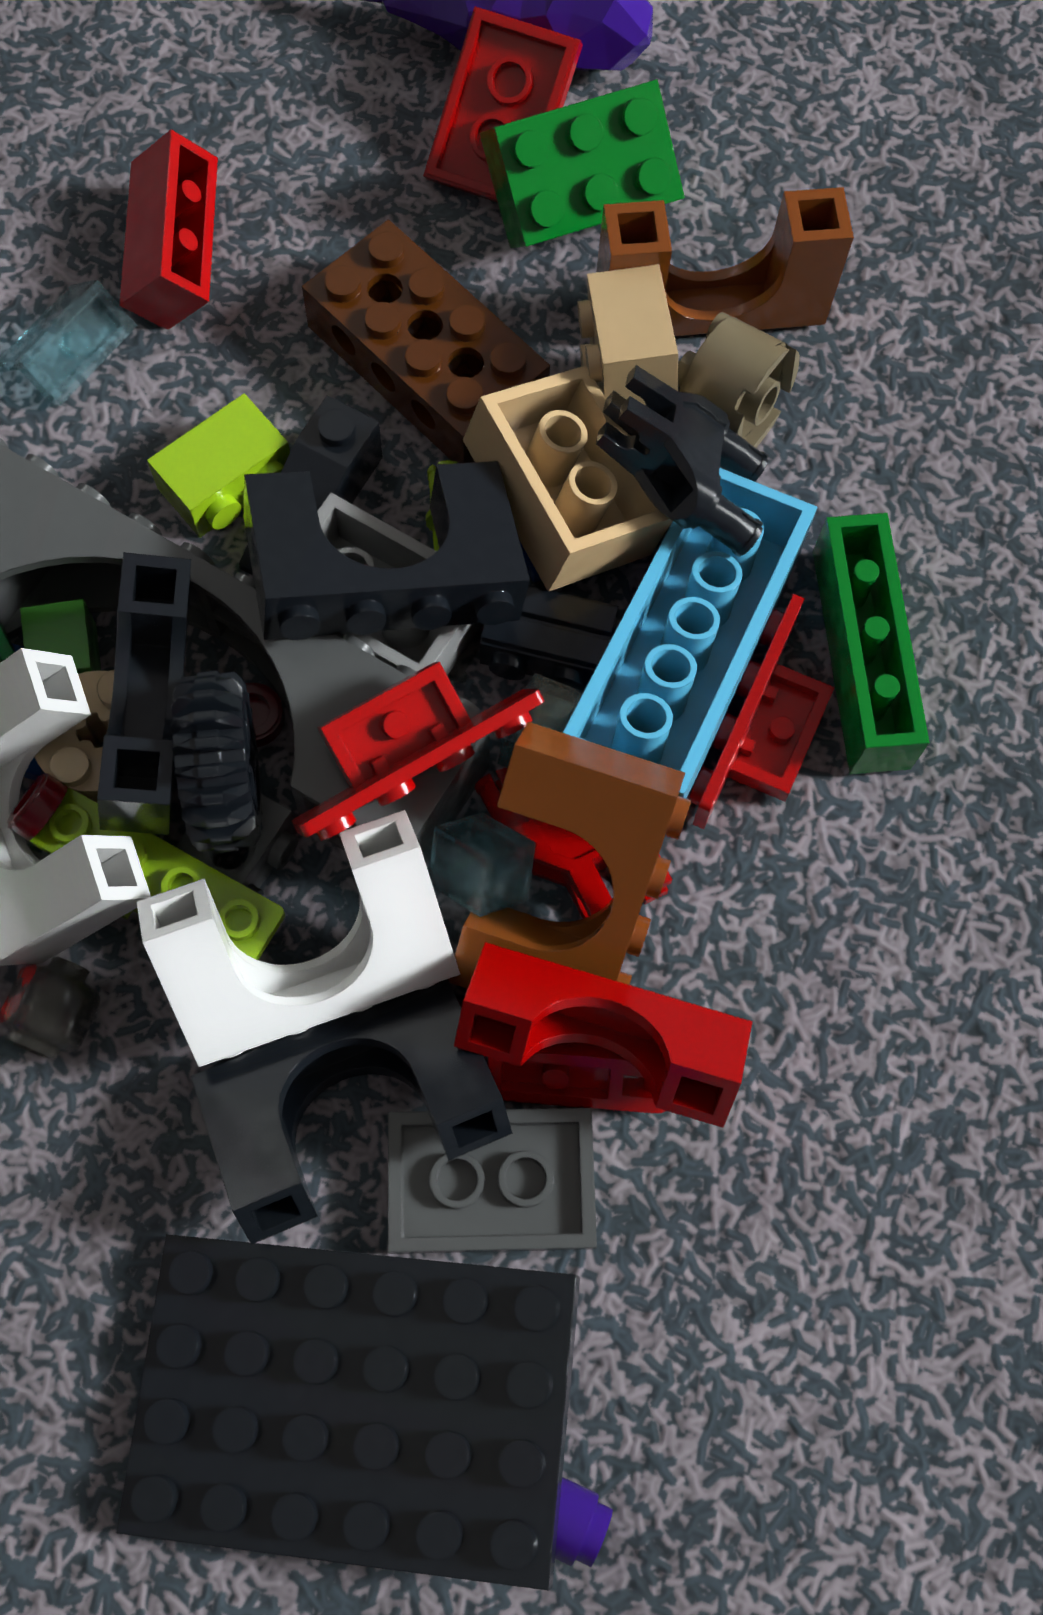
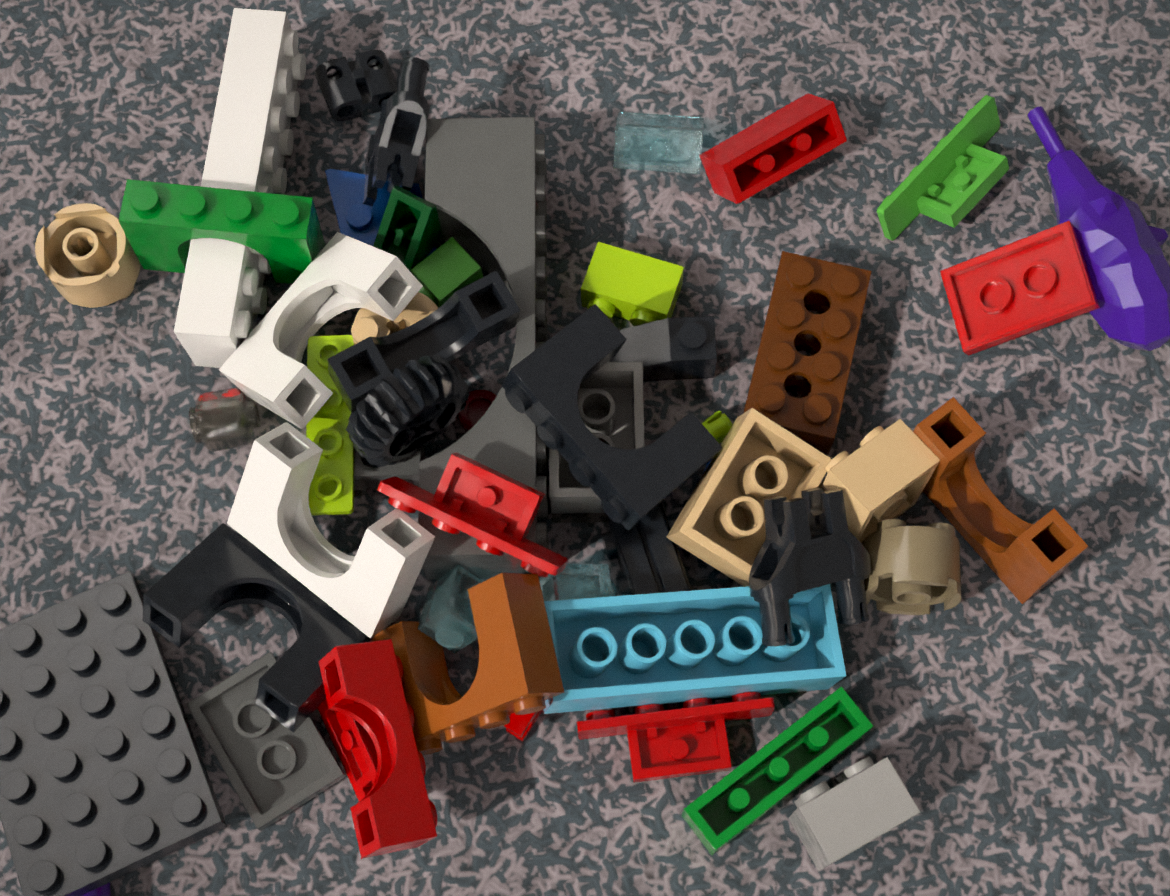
camera: 65 degrees right, 0 degrees up
(36, 806) = (328, 329): dark red tile -> none
(333, 99) = (950, 177): none -> bright green bracket
(572, 160) = (1009, 366): green brick -> none
(962, 592) = (852, 813): none -> light grey brick

